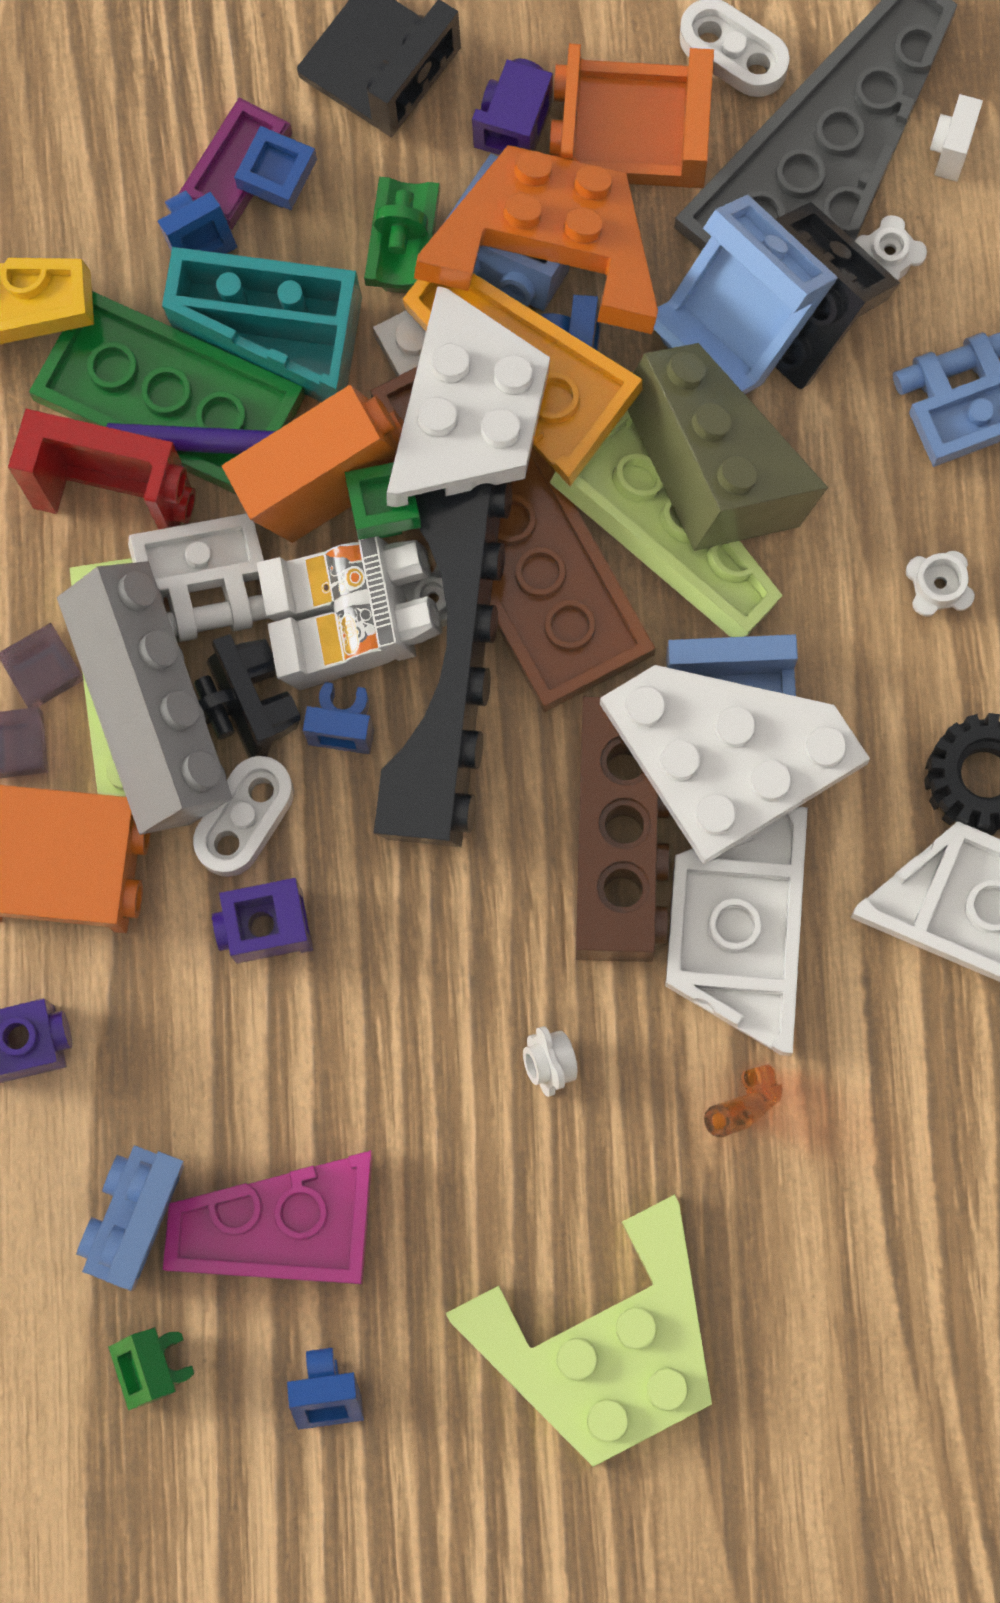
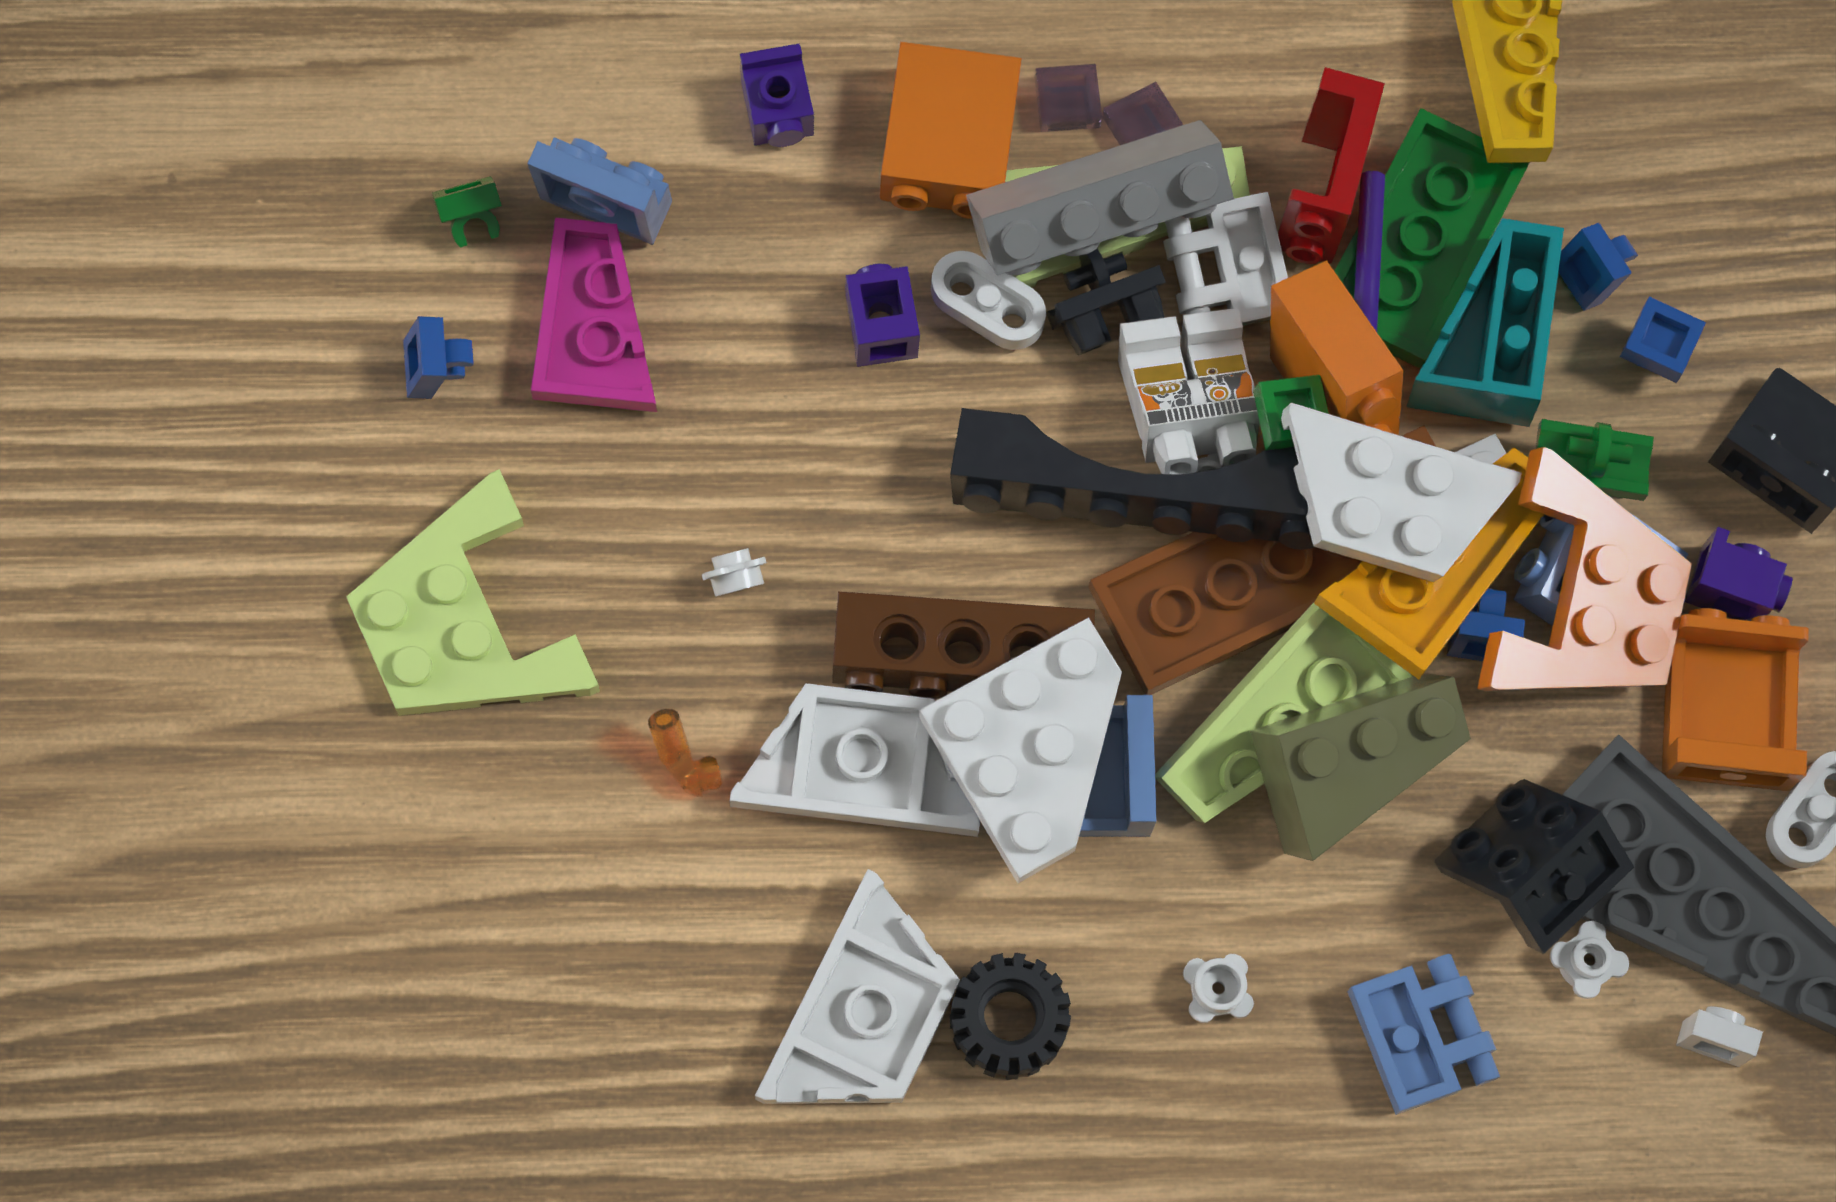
camera: 80 degrees right, 5 degrees down
(224, 155) = (1672, 289): magenta tile -> none
(339, 728) = (1076, 388): blue tile -> none
(745, 293) = (1519, 784): light blue panel -> none

